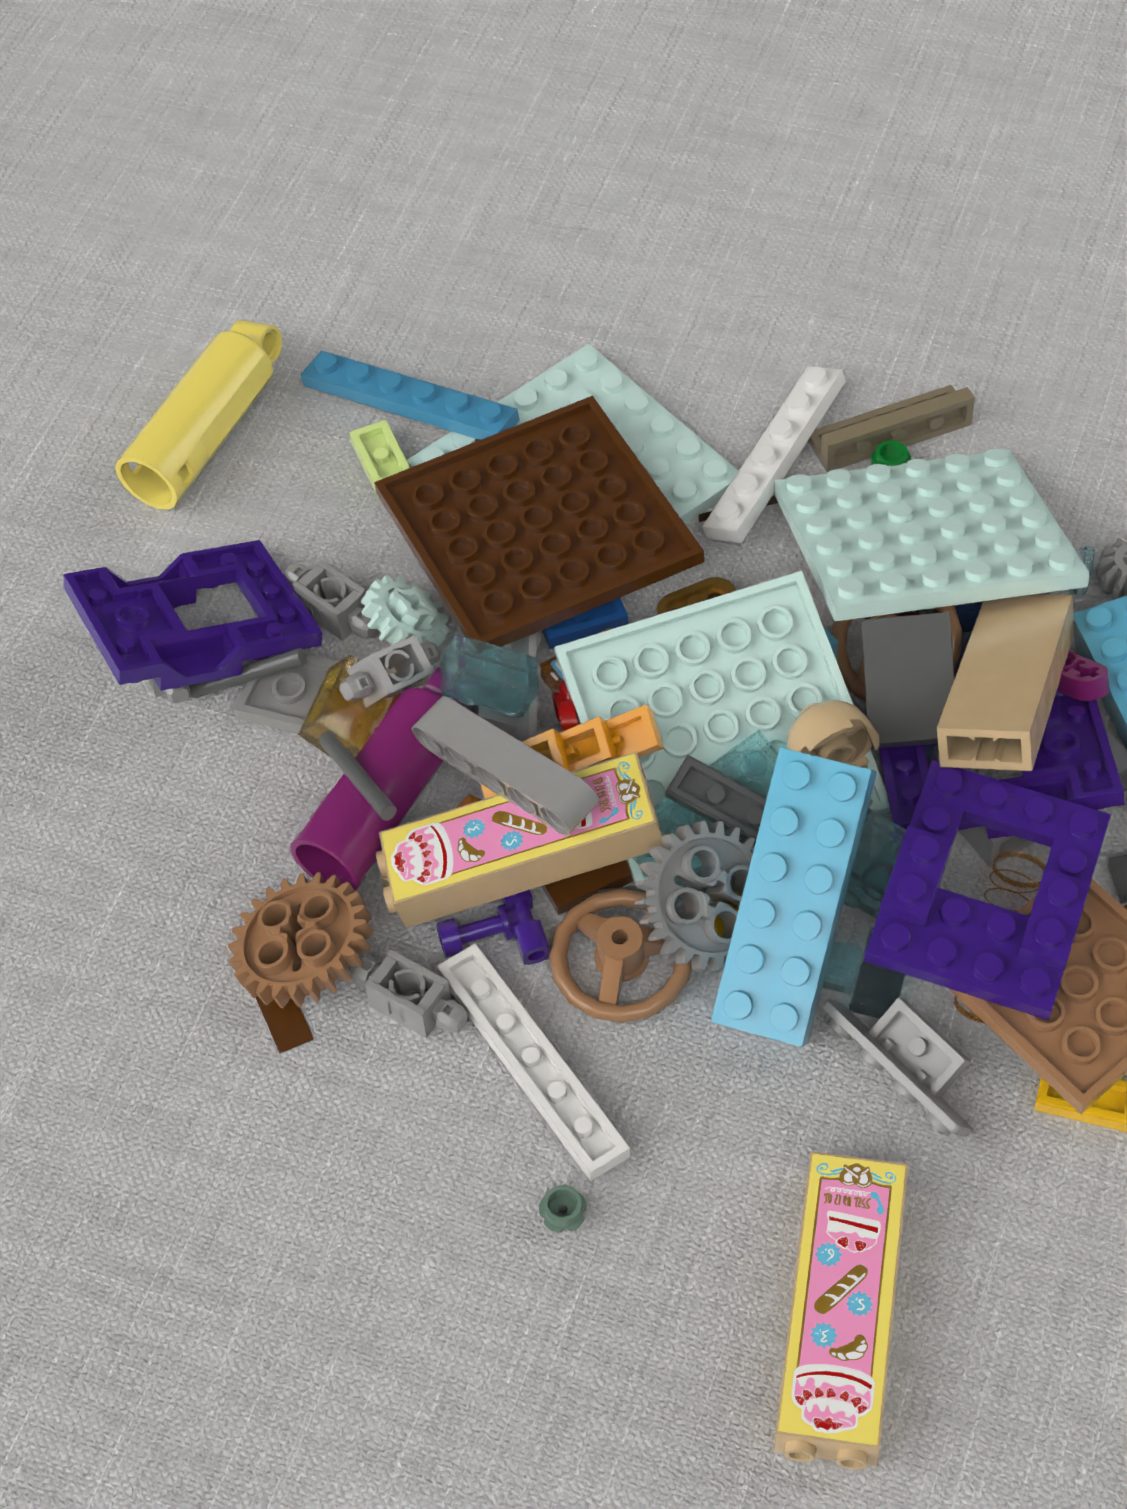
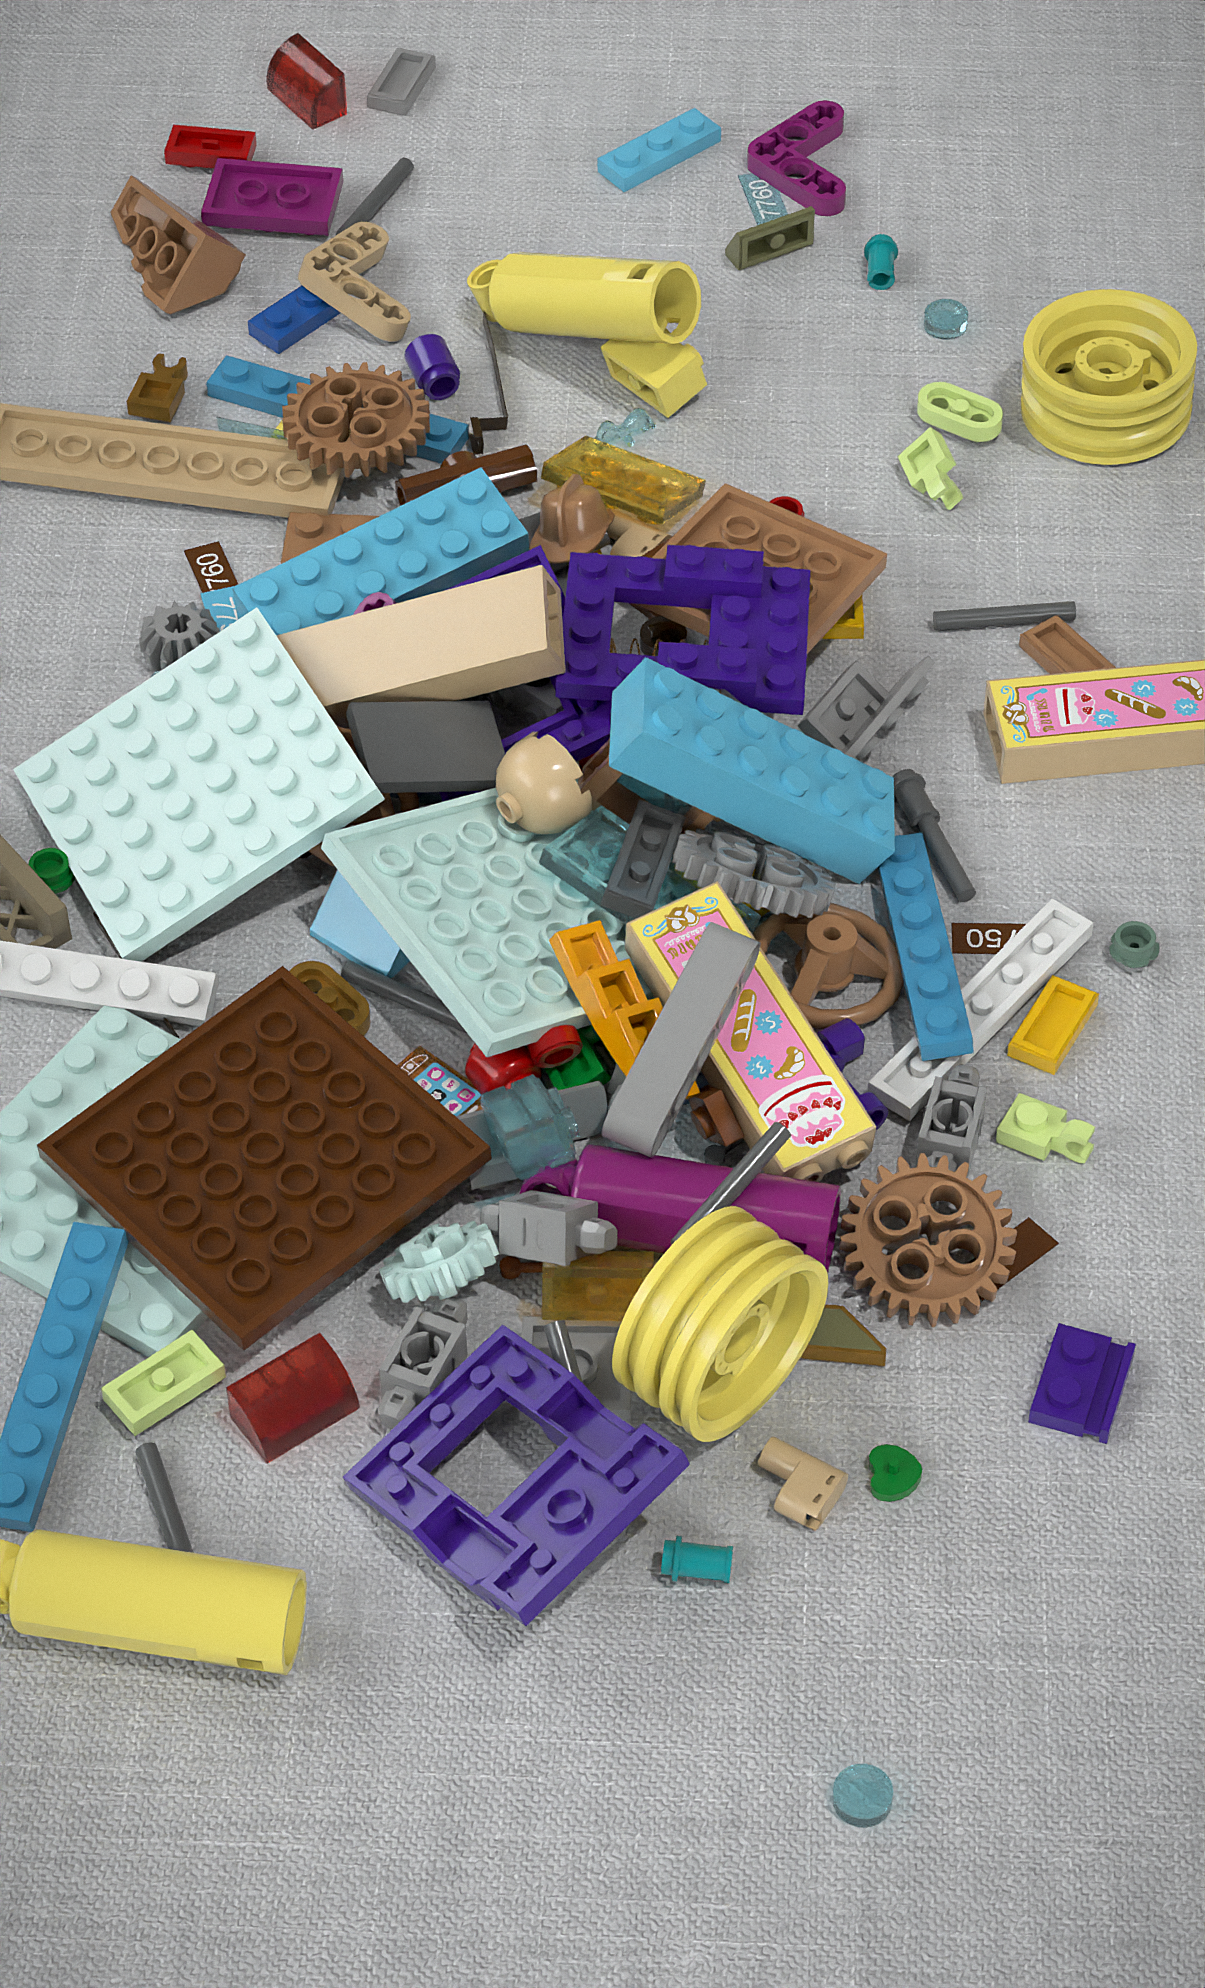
camera: 110 degrees left, 5 degrees down
(100, 726) = (696, 1560): none -> teal pin
(120, 873) = (894, 1472): none -> green piece
(128, 813) = (810, 1483): none -> tan piece
(137, 1021) = (1081, 1383): none -> dark purple plate
(239, 740) = (719, 1323): none -> light yellow wheel
(255, 861) = (843, 1339): none -> tile
(278, 451) = (163, 1498): none -> dark grey bar
(336, 523) = (292, 1398): none -> clear red brick
(391, 1067) = (1041, 1127): none -> yellowish green plate
(501, 1117) = (1053, 1024): none -> yellow tile
(610, 1026) = (924, 951): none -> dark azure plate
(624, 1100) = (982, 937): none -> reddish brown sticker
(774, 1080) = (924, 819): none -> dark grey pin
(956, 1281) = (1061, 648): none -> medium nougat tile
(1030, 1241) = (1003, 615): none -> dark grey bar

